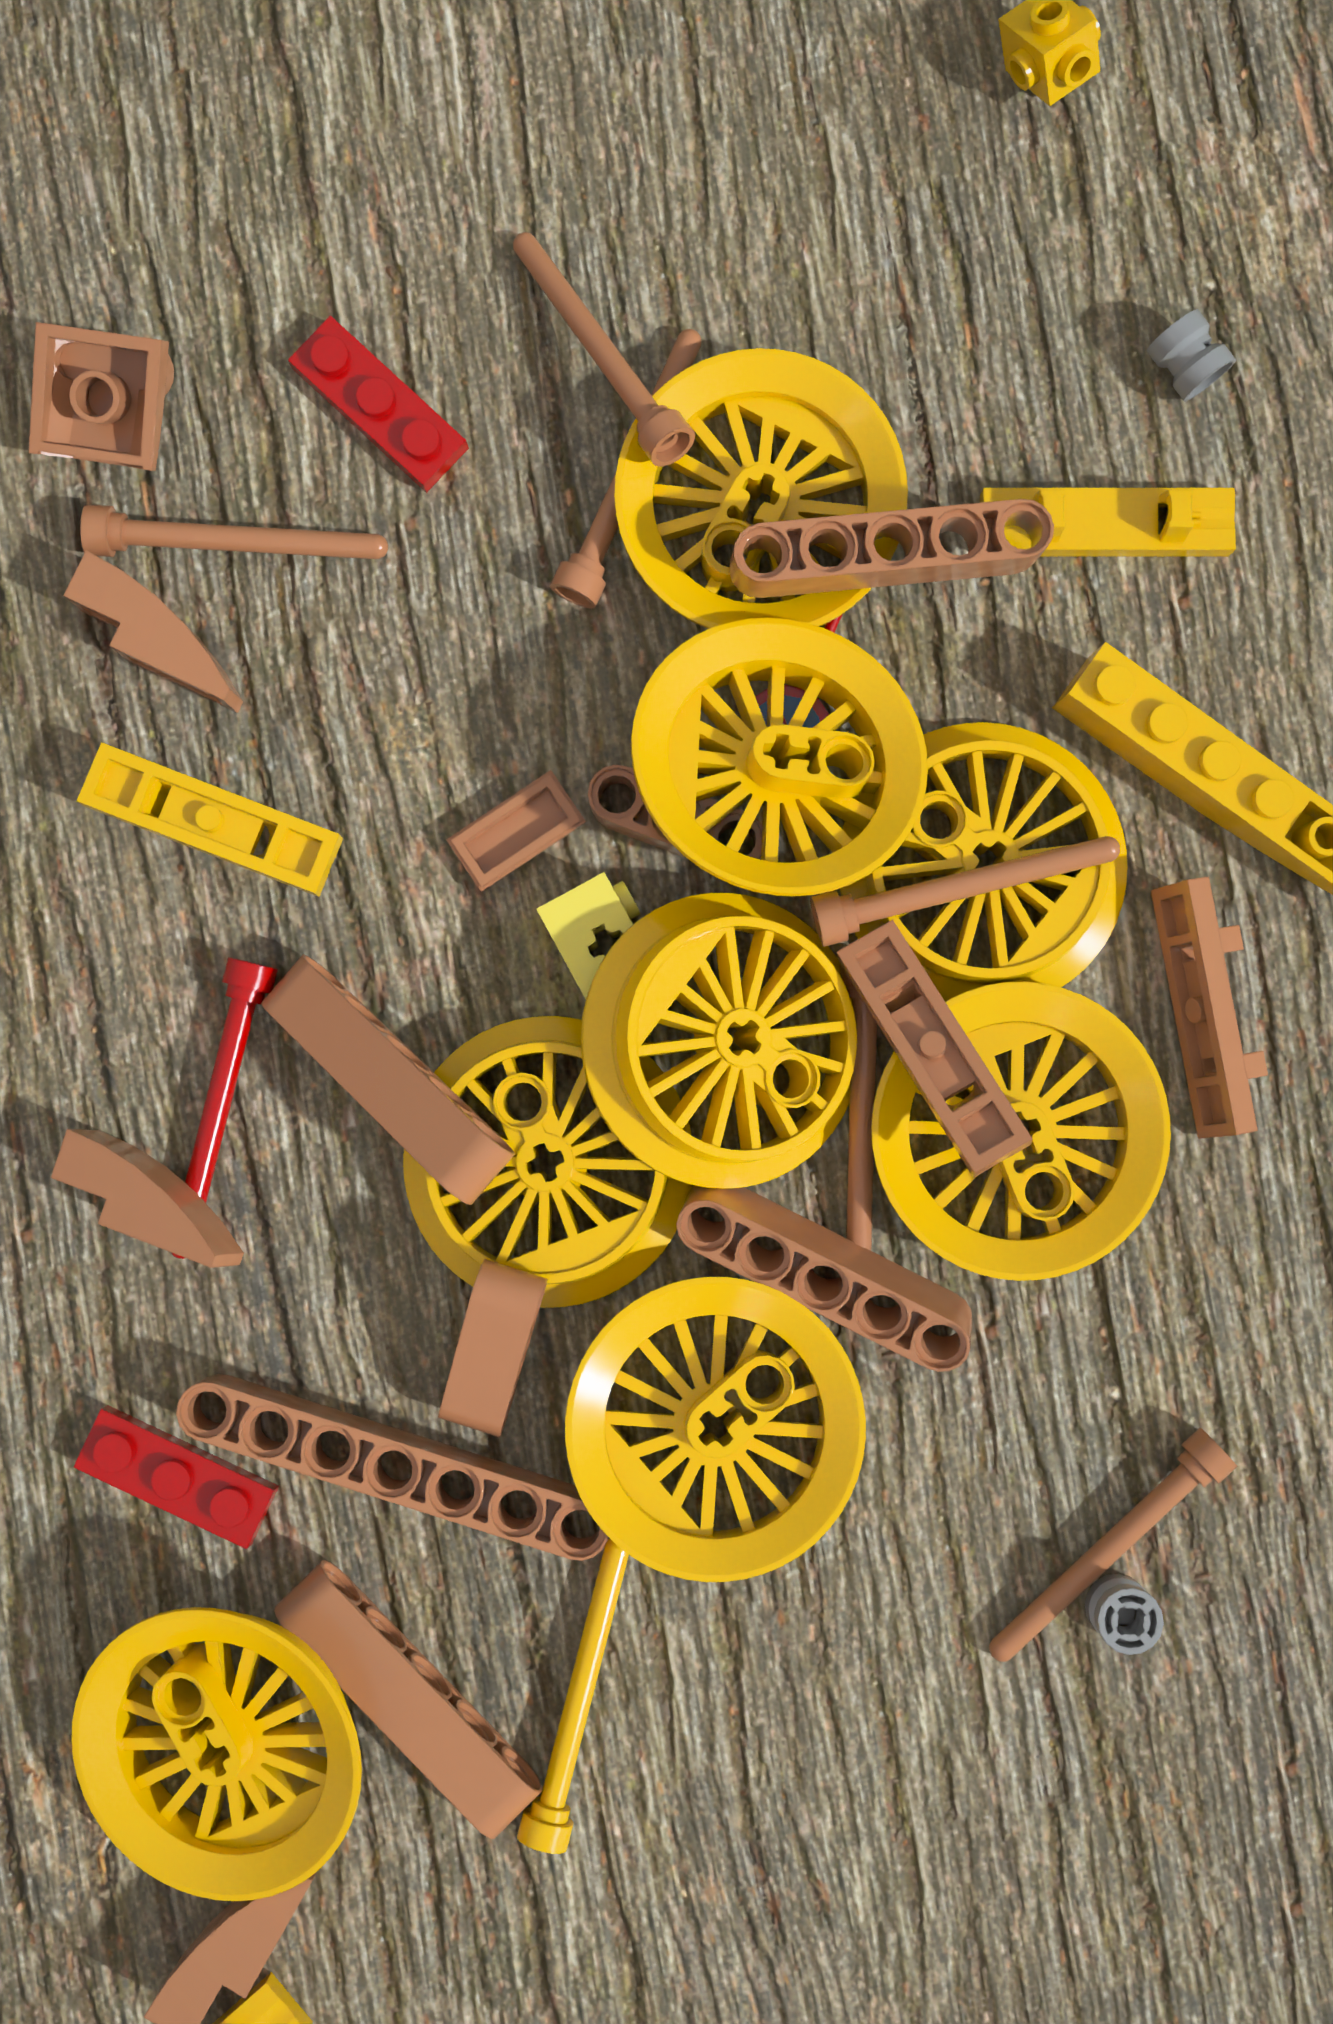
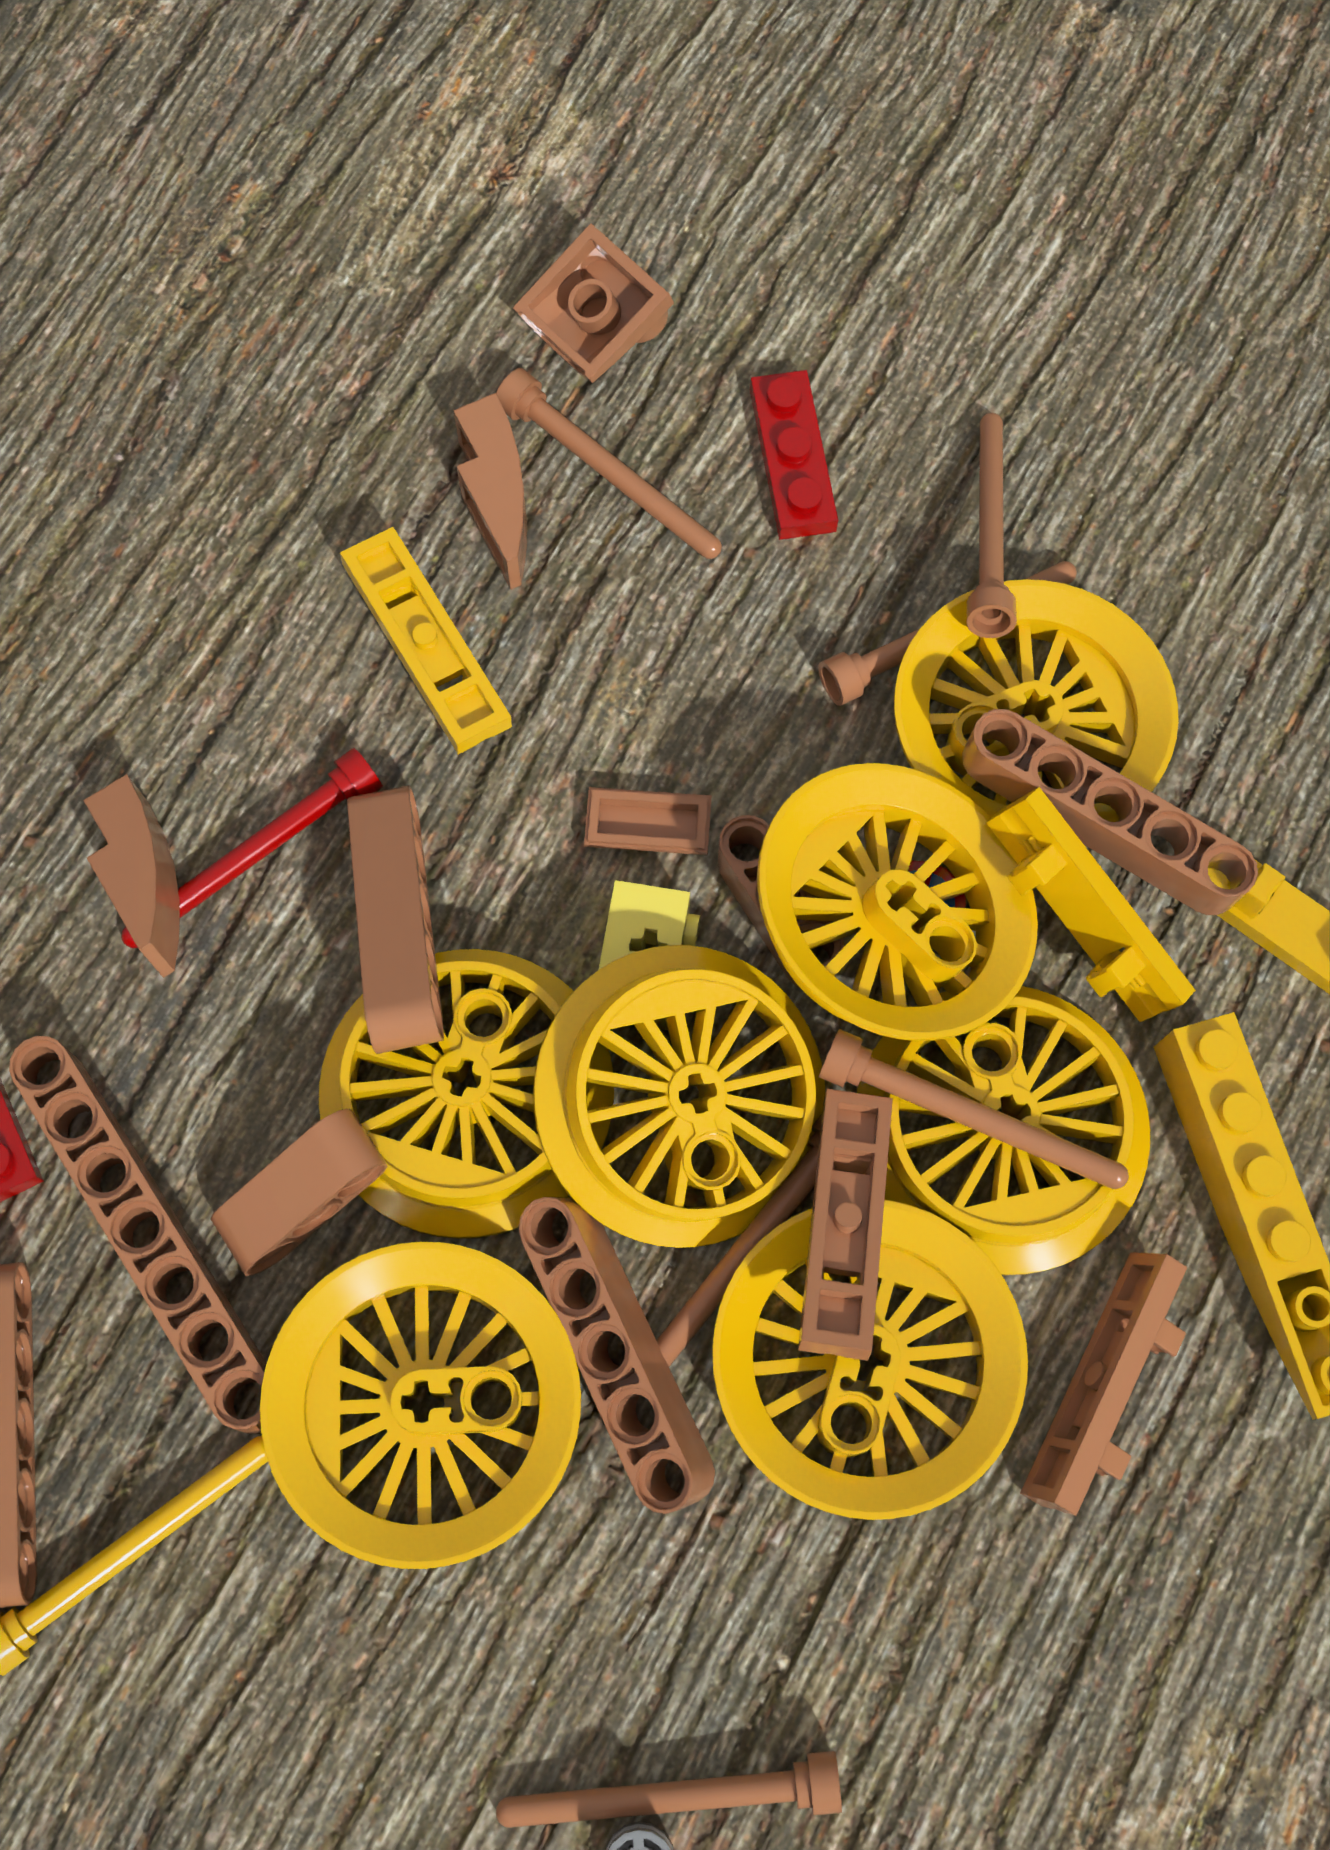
camera: 30 degrees right, 15 degrees down
(914, 632) = (1089, 906): none -> yellow hinge

